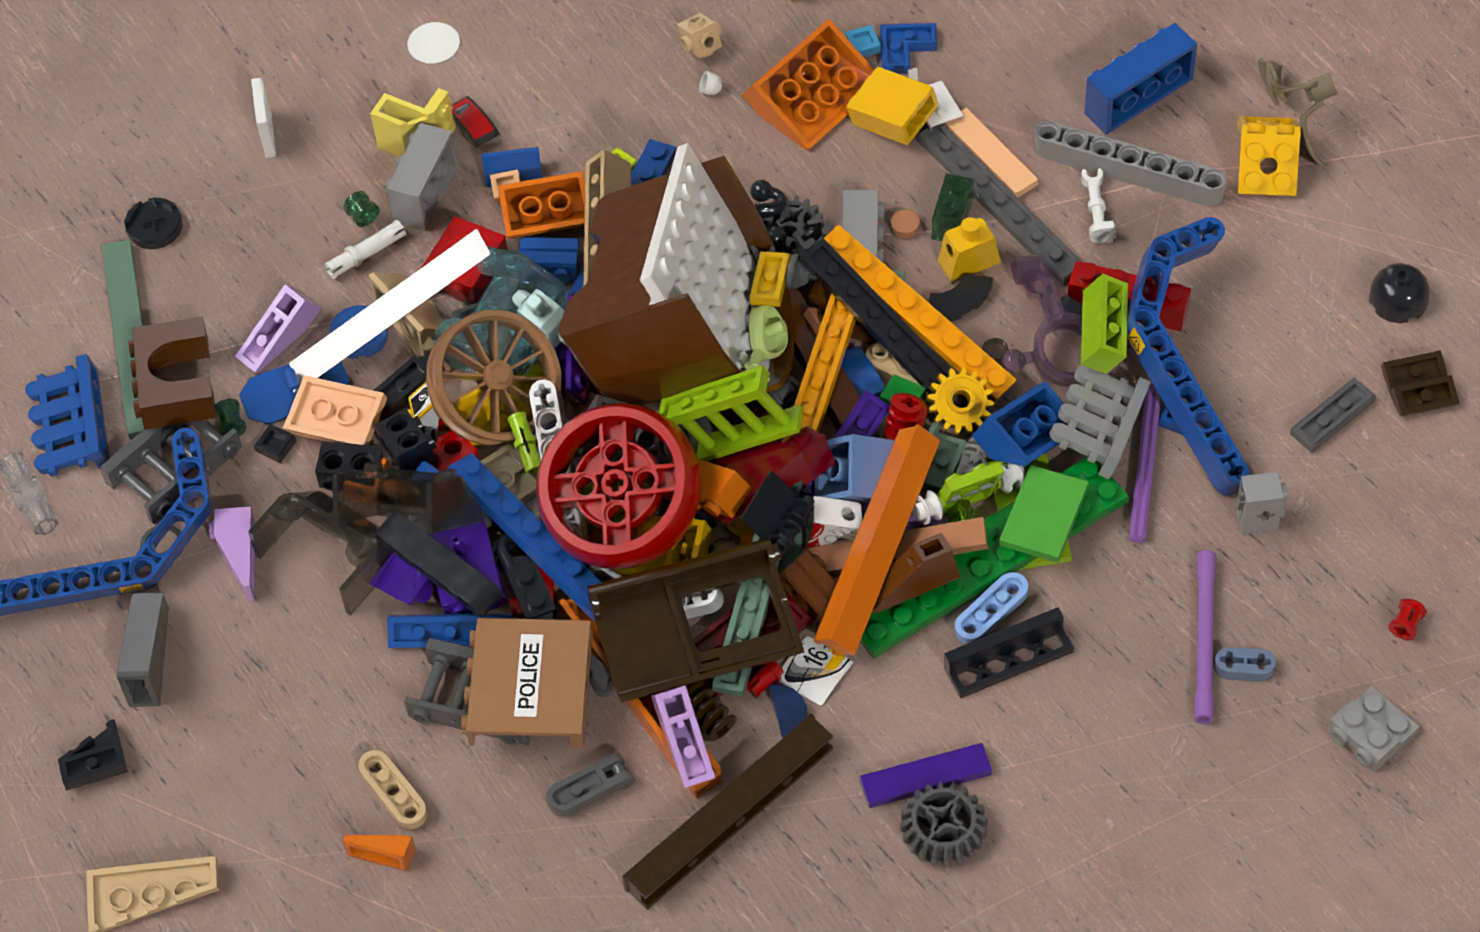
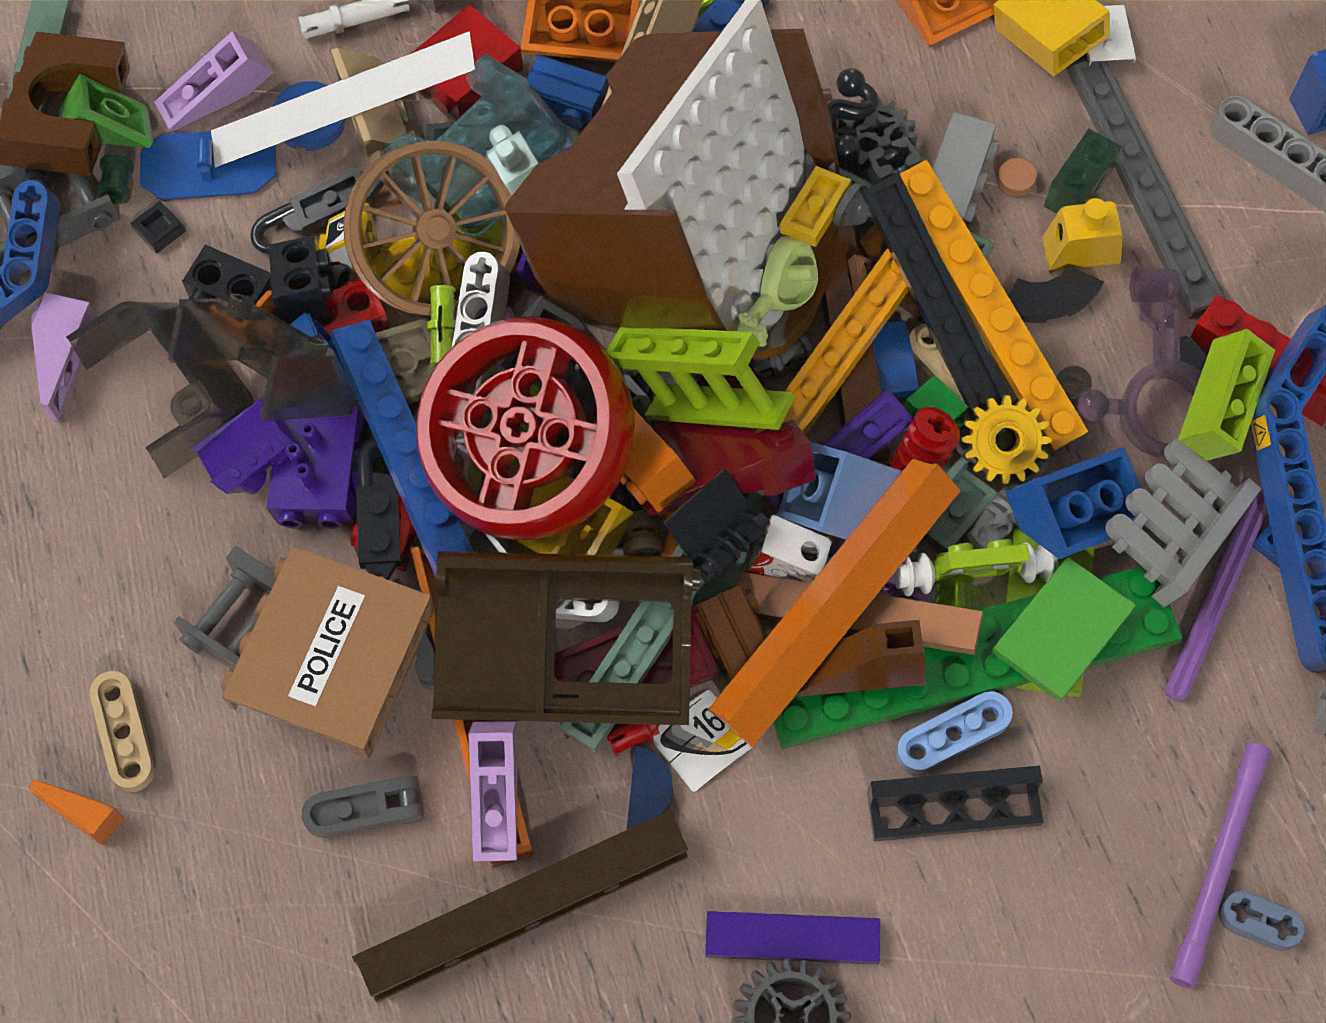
camera: 15 degrees right, 10 degrees up
(223, 373) = (116, 116): none -> bright green slope
(334, 412) = (237, 211): light nougat plate -> none
(416, 629) = (259, 535): blue plate -> none
(438, 564) = (271, 459): black beam -> none
(709, 715) = (539, 760): dark brown piece -> none
(993, 153) = (1156, 118): light nougat tile -> none
(1101, 230) = (1262, 261): white piece -> none

